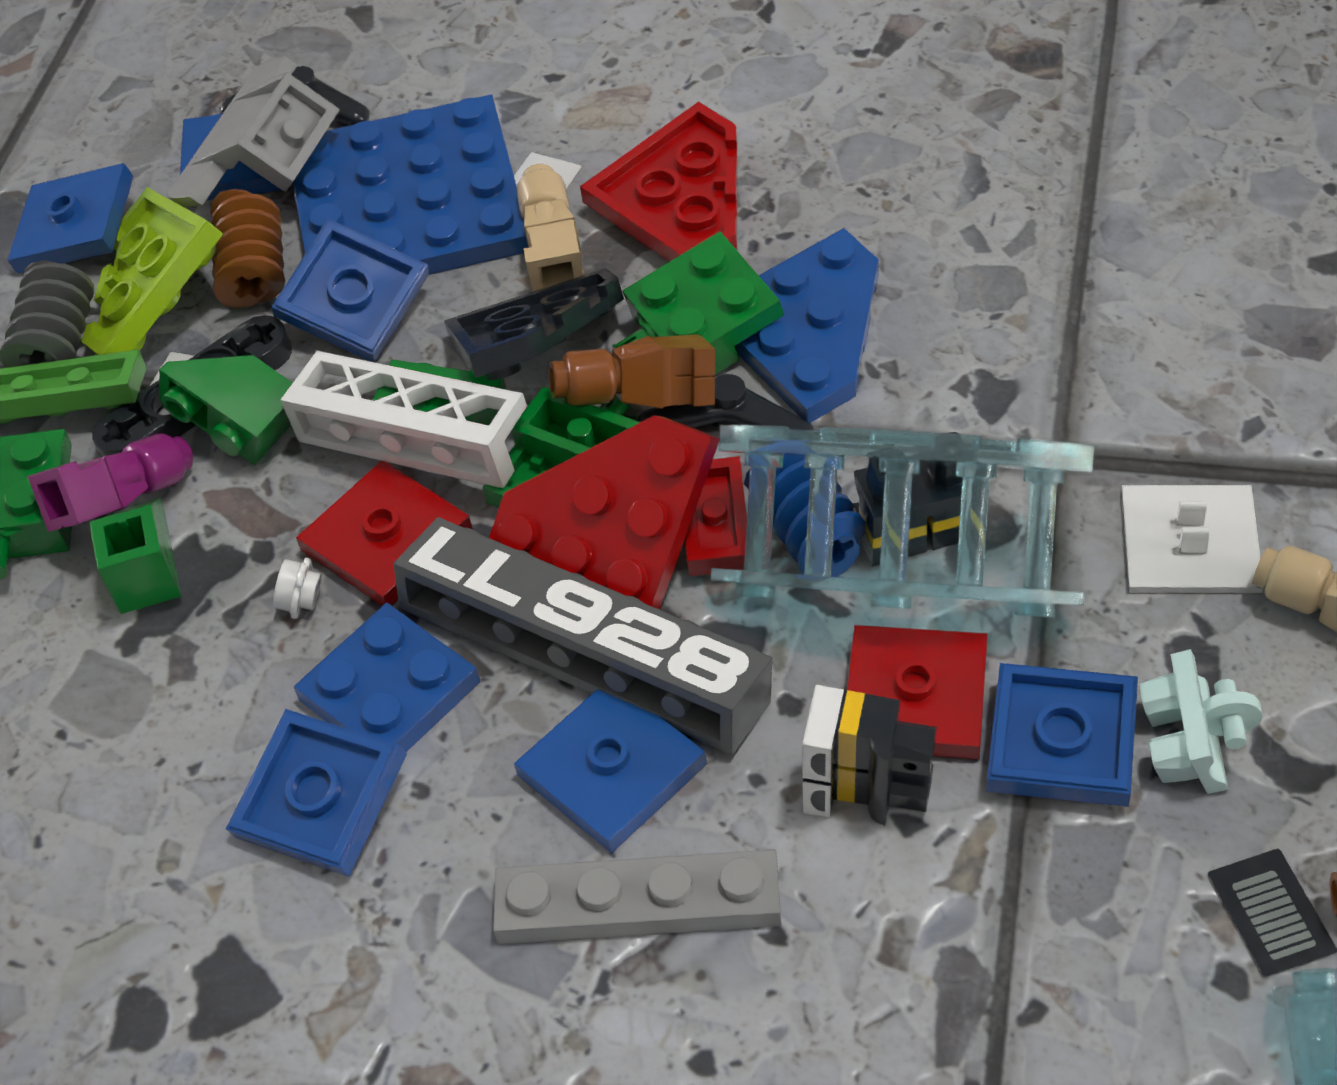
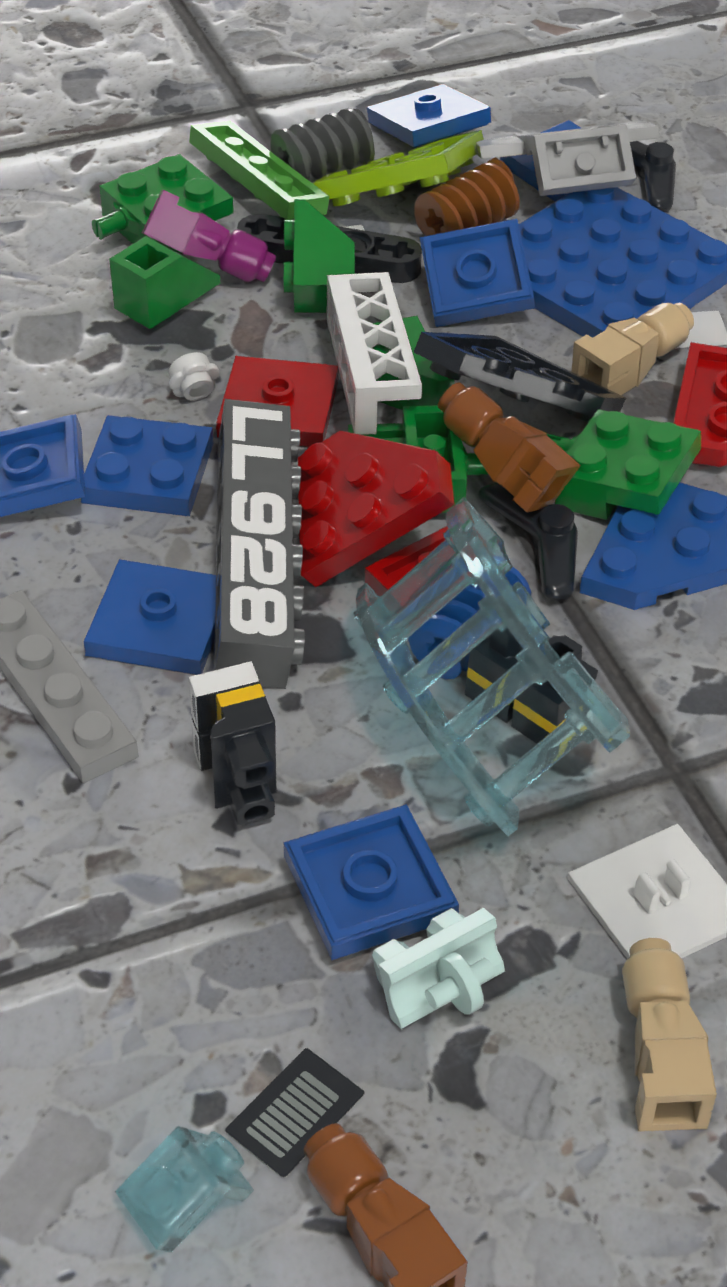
camera: 50 degrees right, 5 degrees down
(933, 676) = (352, 767): red plate -> none

